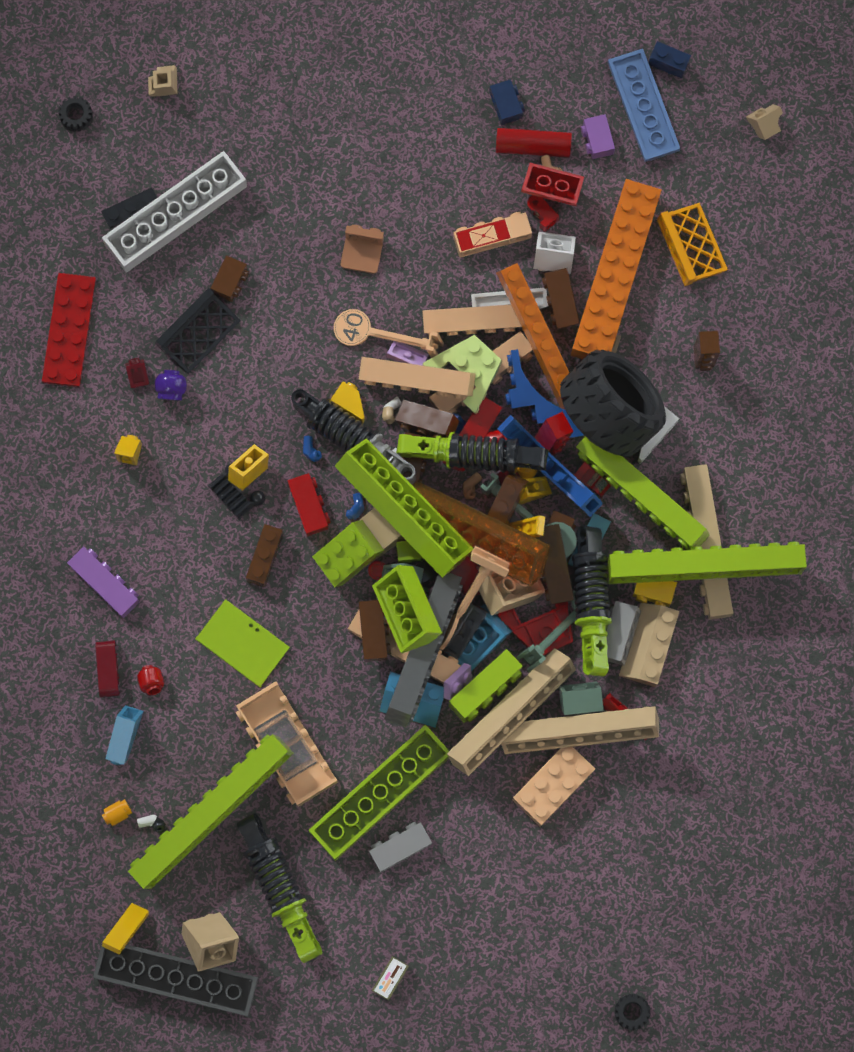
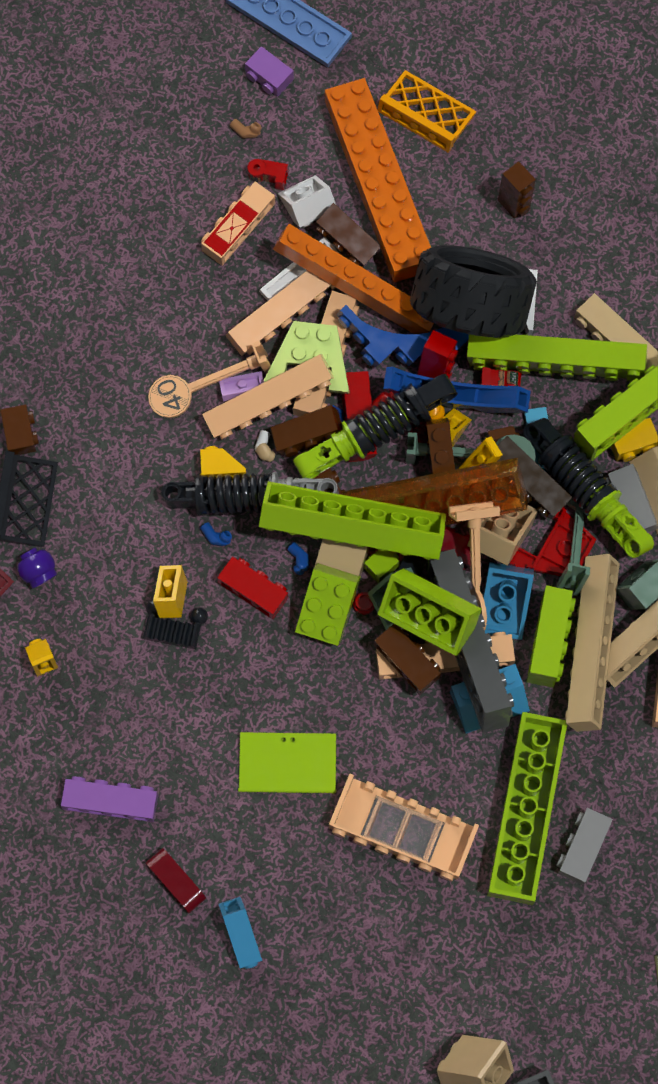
camera: 35 degrees left, 5 degrees down
(116, 812) = (289, 1013): light orange brick -> none
(150, 680) = (226, 861): red head -> none
(152, 821) = (330, 995): arm -> none
(210, 811) = (383, 943): lime brick -> none
(264, 555) = (247, 664): reddish brown brick -> none
(275, 884) = (505, 969): black piece -> none
(362, 249) = (125, 317): nougat bracket -> none
(457, 681) = (520, 651): lavender plate -> none
(465, 630) = (492, 592): black tile -> none
(469, 486) = (391, 466): medium nougat arm -> none
(506, 102) = (160, 96): dark blue brick -> none
(533, 142) = (213, 116): red brick -> none
(552, 184) = (261, 139): red slope -> none

